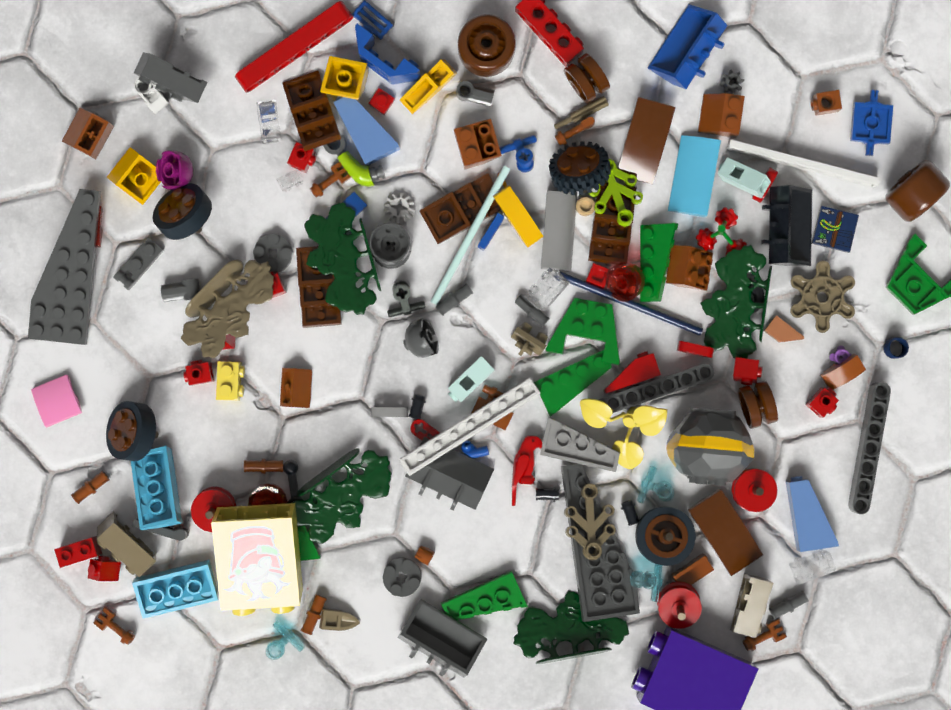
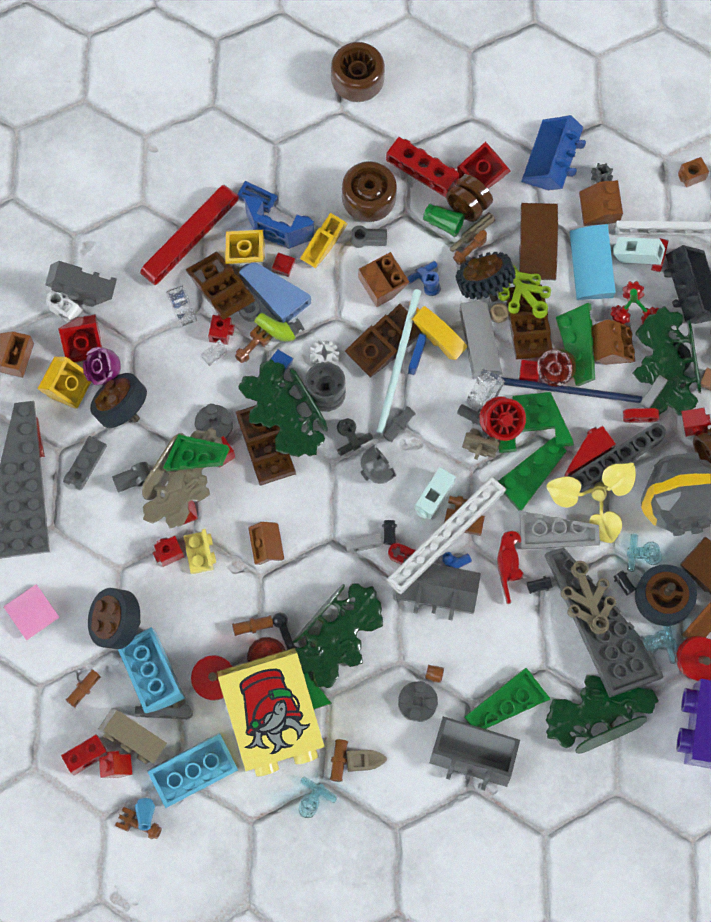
camera: 15 degrees left, 15 degrees down
(122, 618) = (144, 812): none -> dark azure cone
(160, 133) = (80, 337): none -> red slope
(243, 287) = (195, 453): none -> green wing
(555, 323) = (502, 418): none -> red wheel
(556, 93) = (444, 219): none -> green plant
(612, 46) = (484, 165): none -> red slope
(714, 330) = (653, 392): none -> light grey beam

